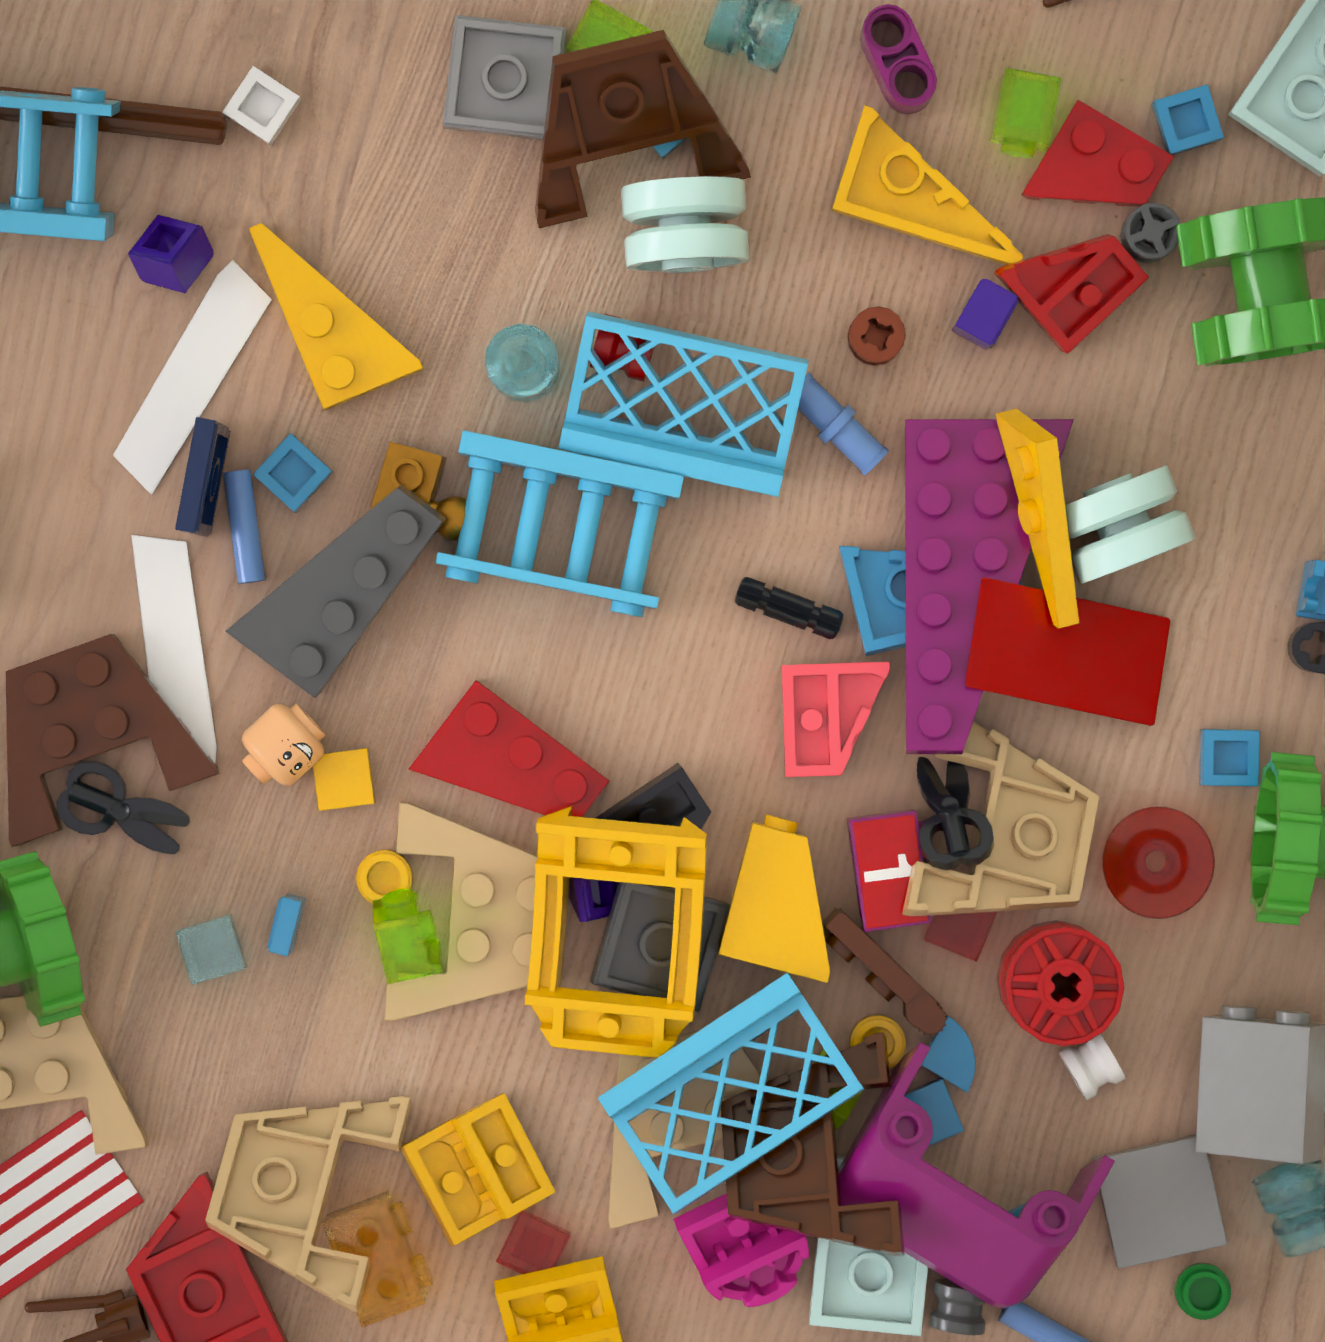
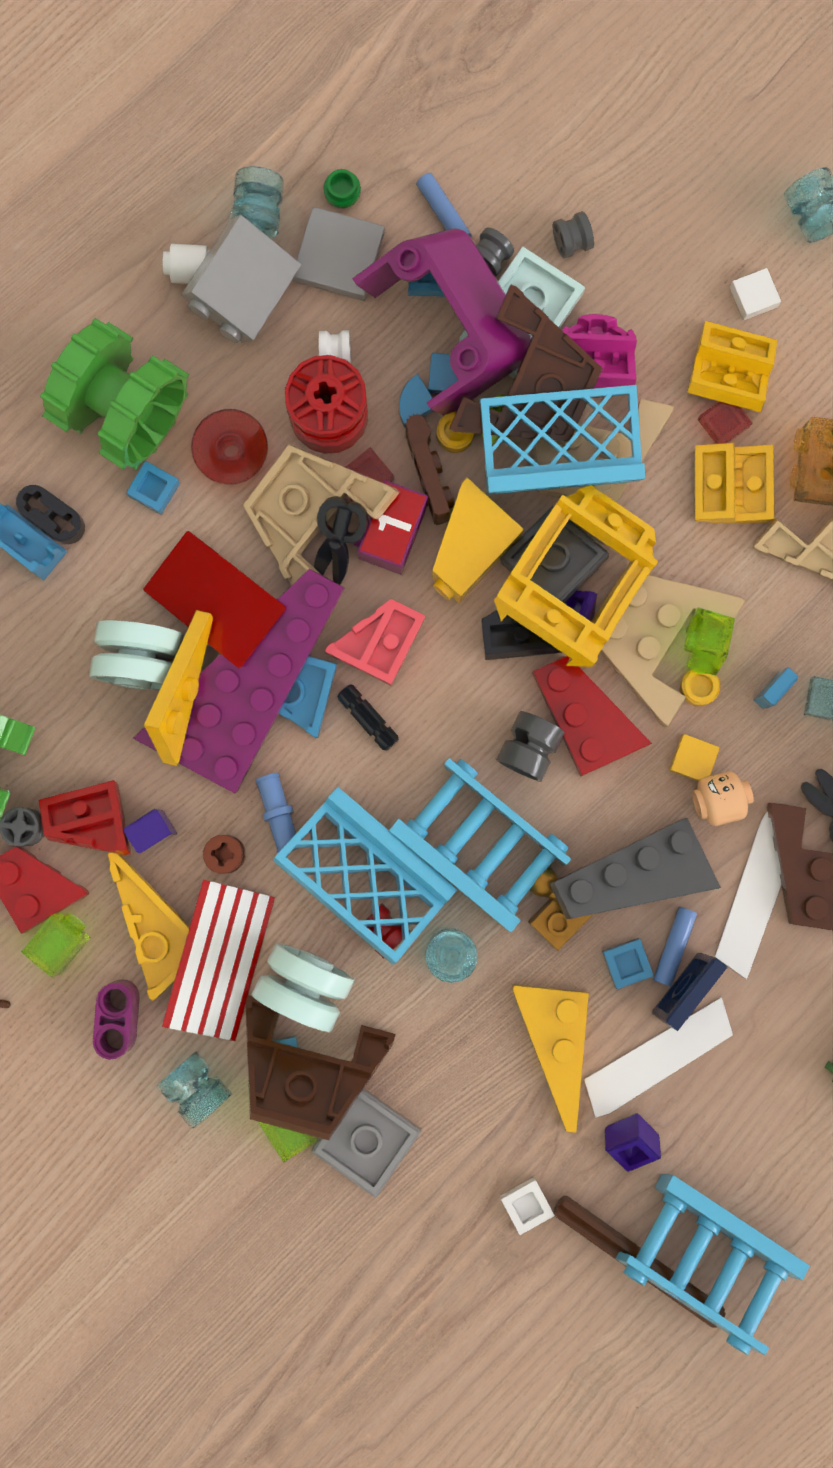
camera: 155 degrees left, 5 degrees down
(561, 680) = (530, 746): none -> dark grey wheel
(809, 199) = (218, 961): none -> sticker

